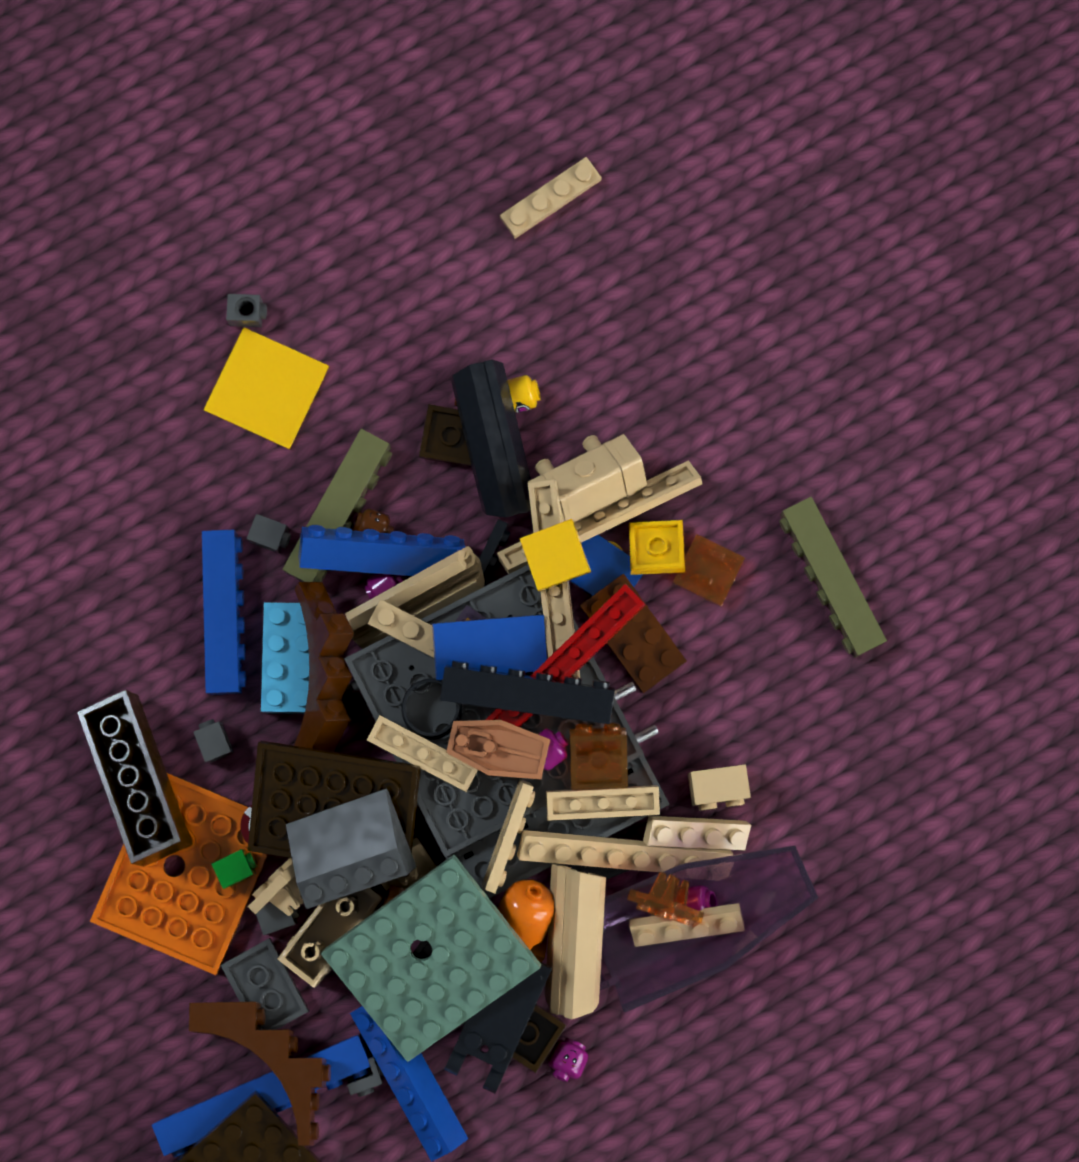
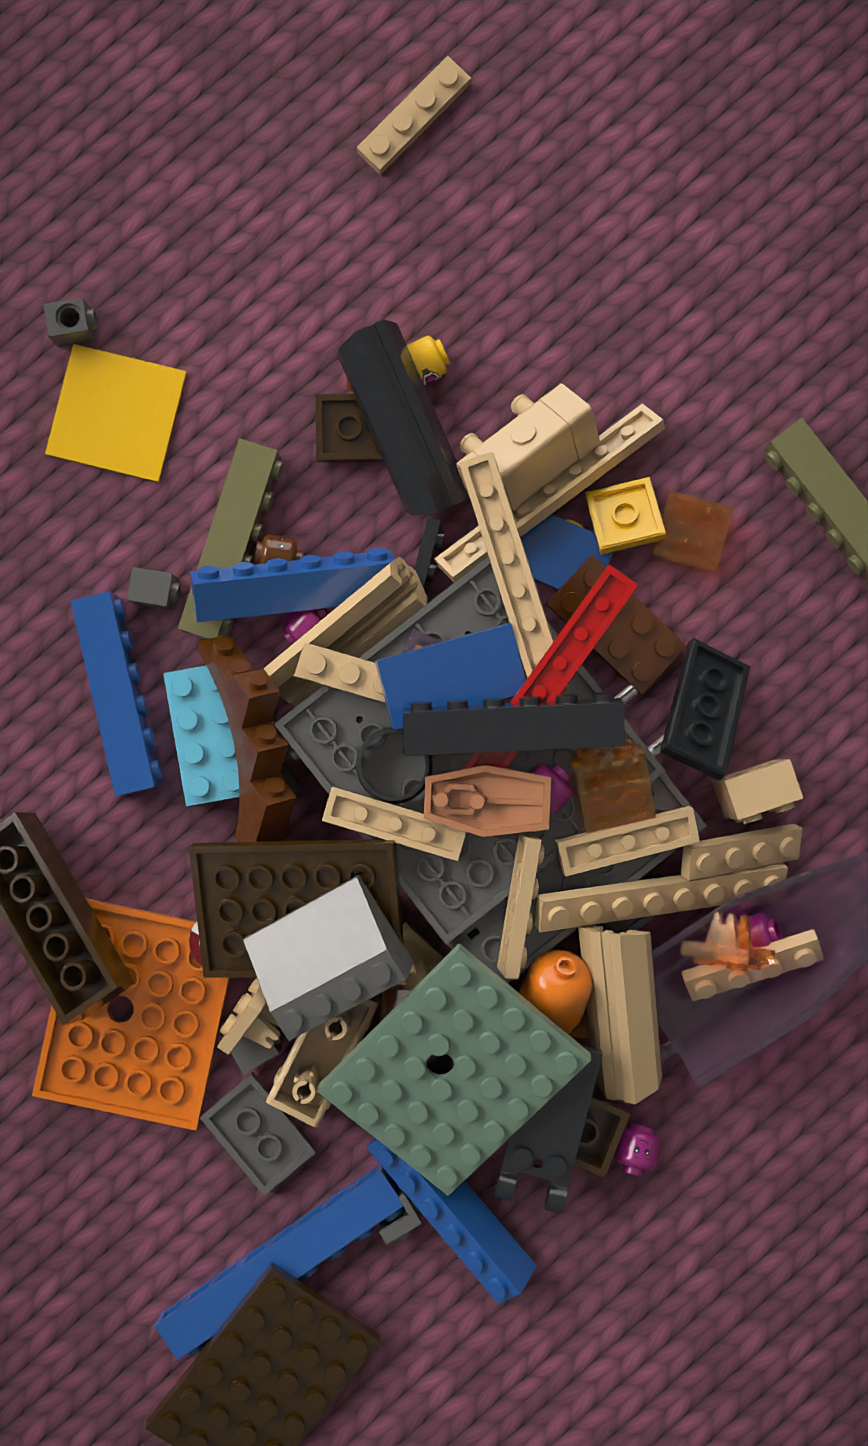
camera: 10 degrees left, 5 degrees up
(213, 741) = (136, 851): dark grey brick -> none
(235, 868) = (193, 1001): green brick -> none
(275, 1047) = (319, 1238): reddish brown arch -> none
(555, 555) = (511, 545): yellow tile -> none
(689, 713) = (705, 709): none -> black tile

